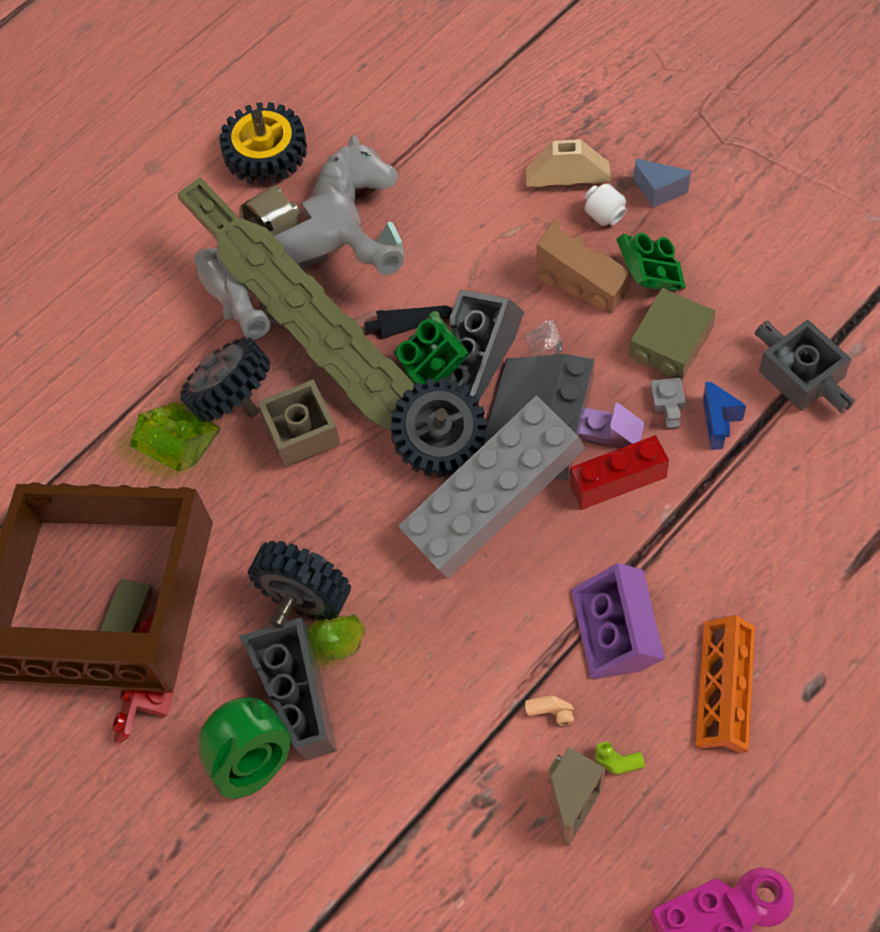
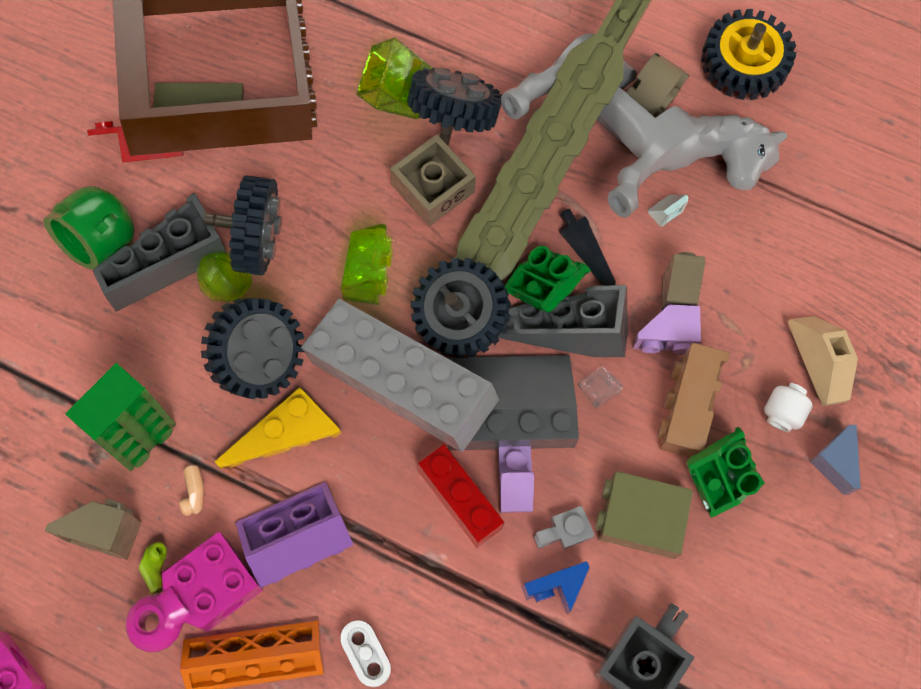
camera: 65 degrees right, 10 degrees up
(368, 497) = (367, 265): none -> clear neon green slope
(427, 610) = (252, 348): none -> wheel
(470, 248) = (682, 280): none -> dark tan slope
(474, 729) = (122, 417): none -> green brick
(507, 609) = (289, 425): none -> yellow wing
(508, 269) = (671, 330): none -> lavender slope
(657, 718) = (196, 591): none -> dark pink brick
(743, 585) = (365, 654): none -> white plate

